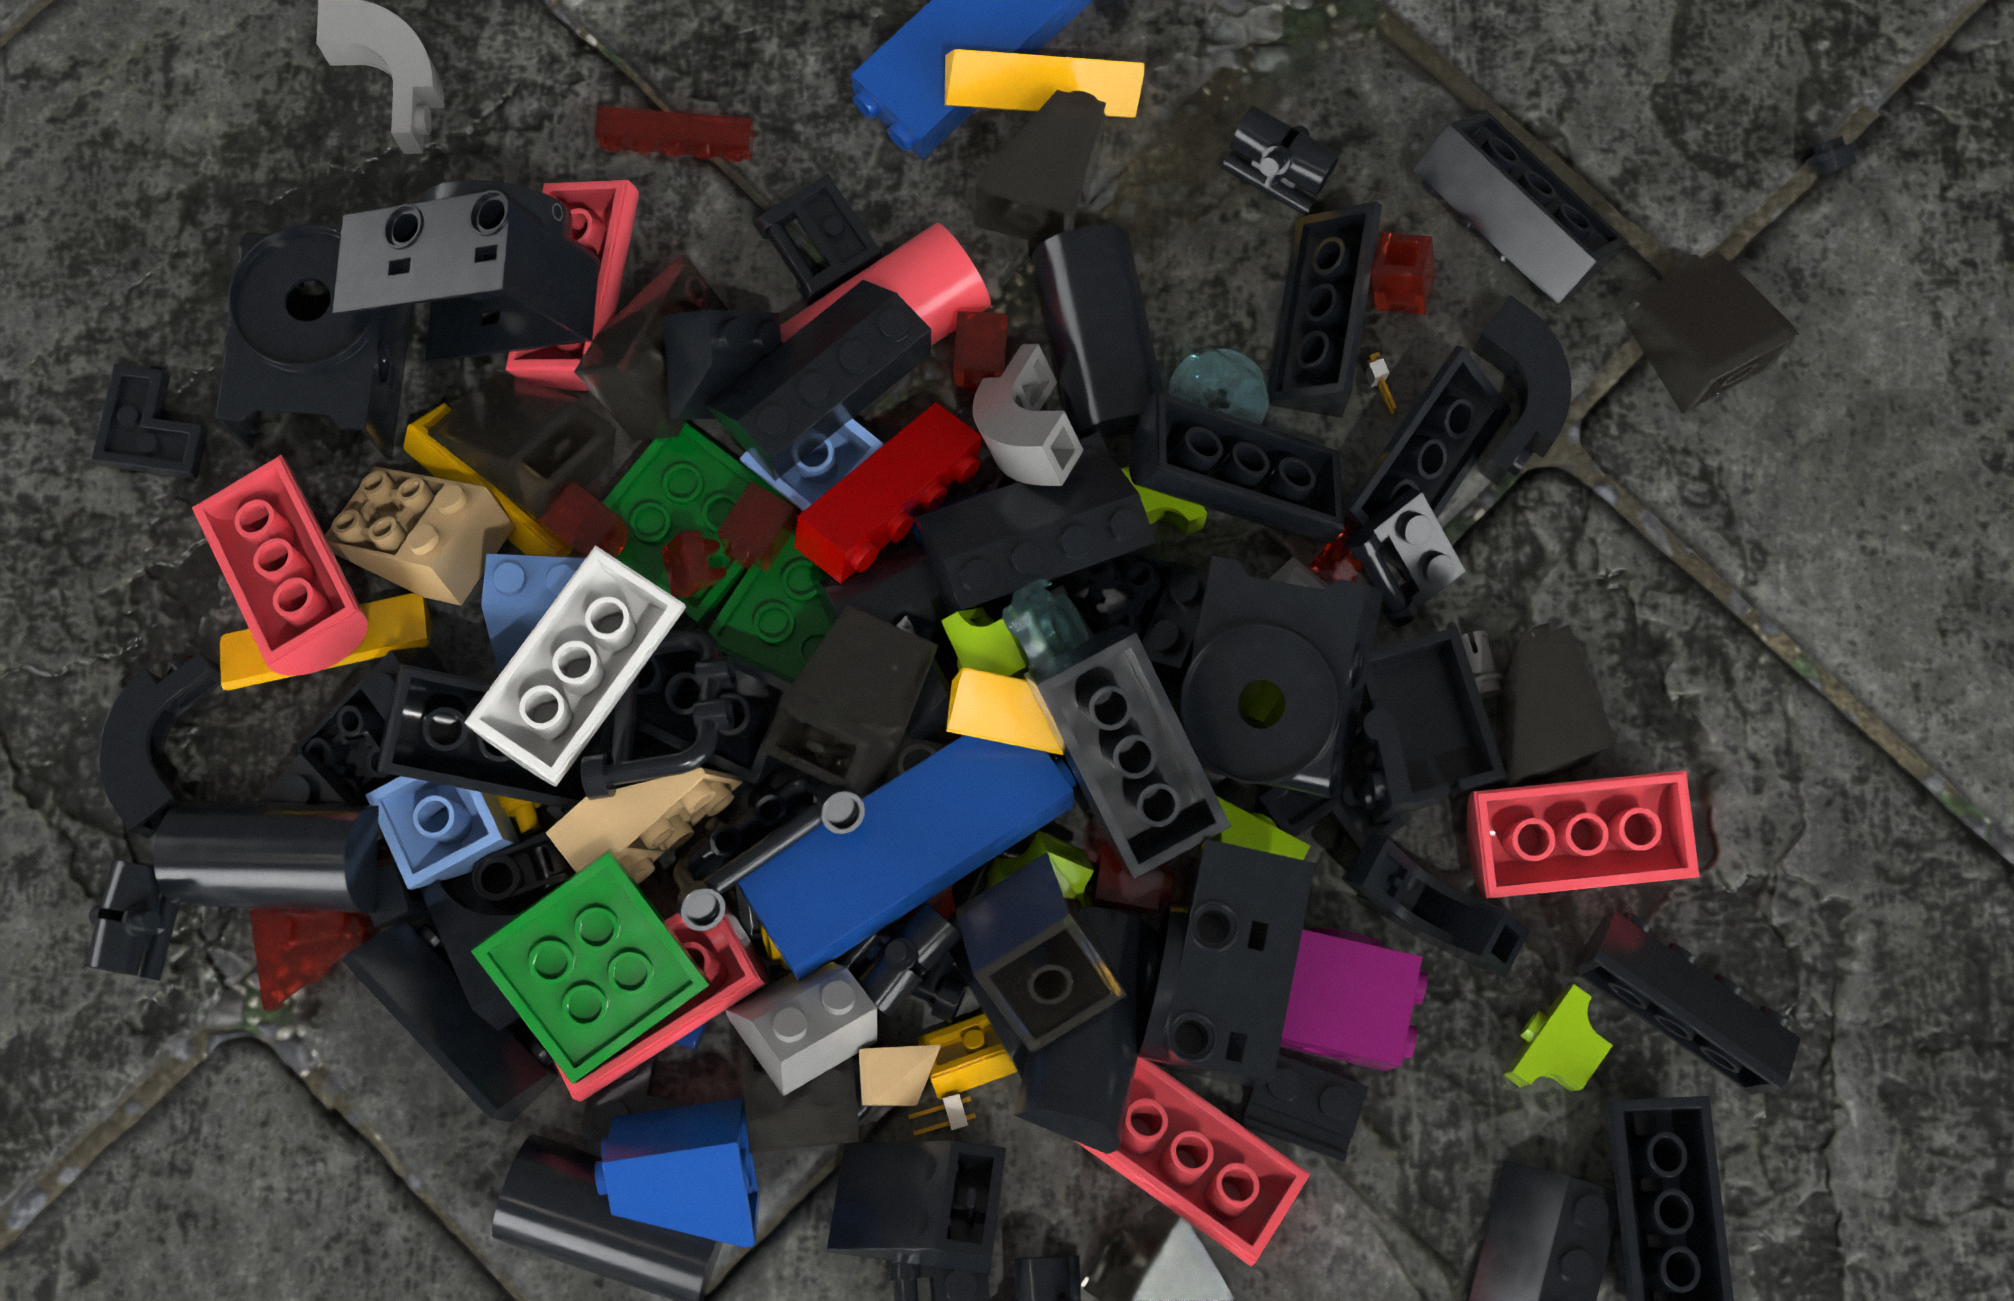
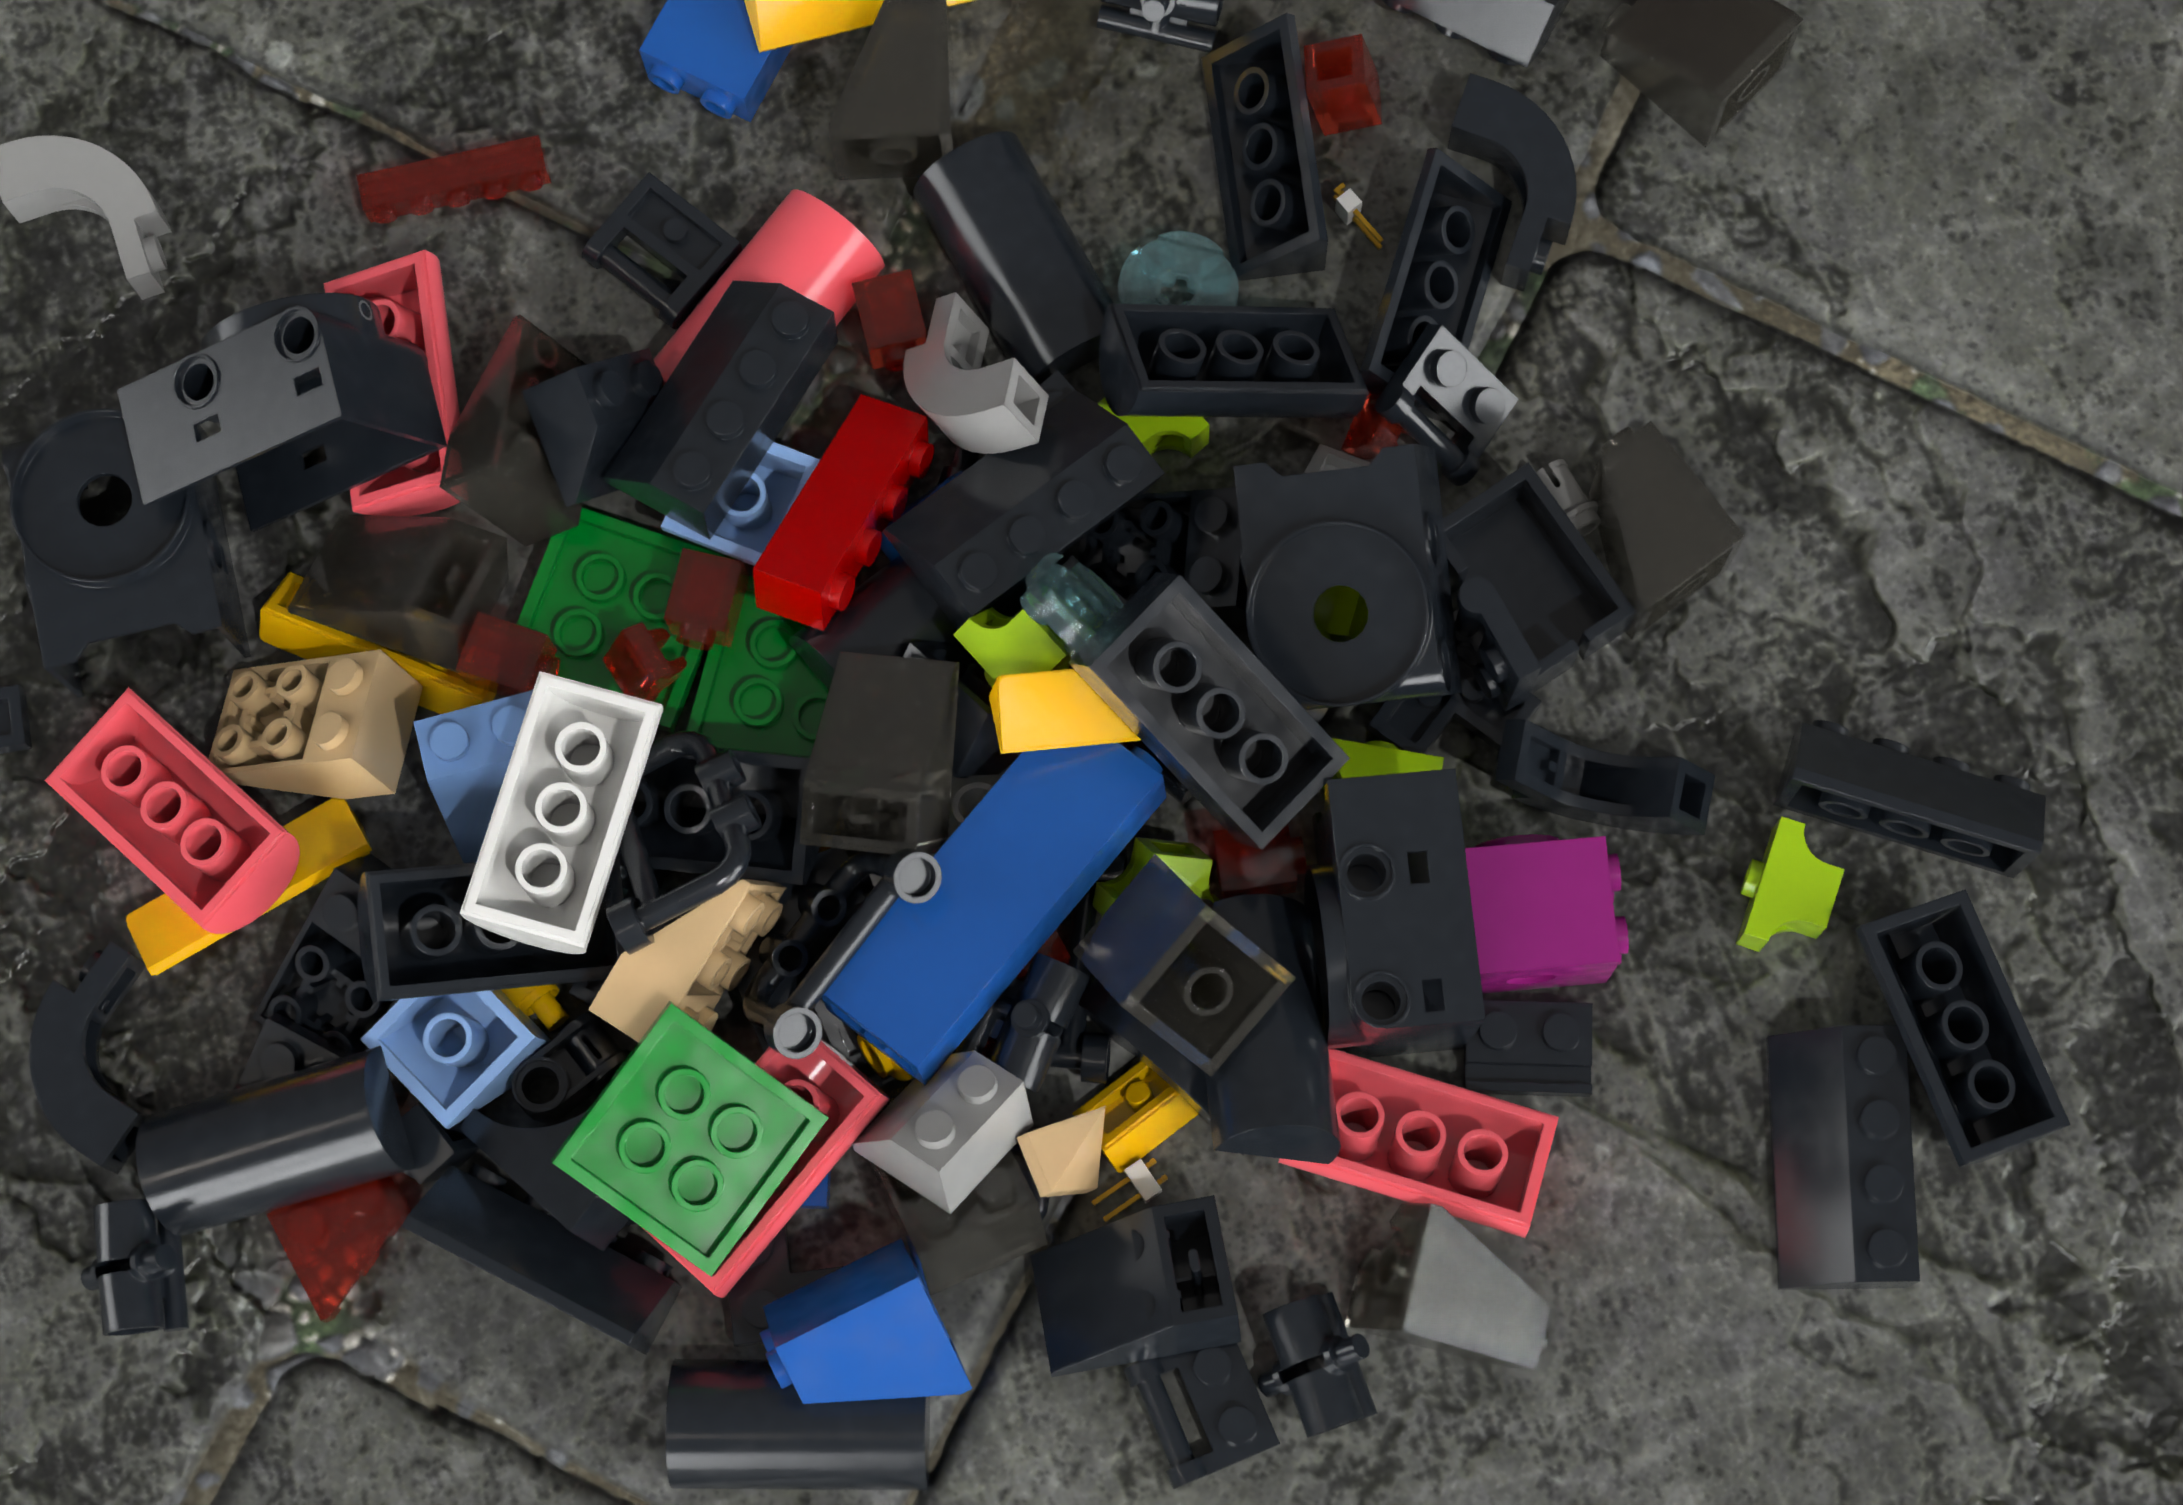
camera: 15 degrees left, 0 degrees up
(1581, 834) = (1737, 650): coral brick -> none

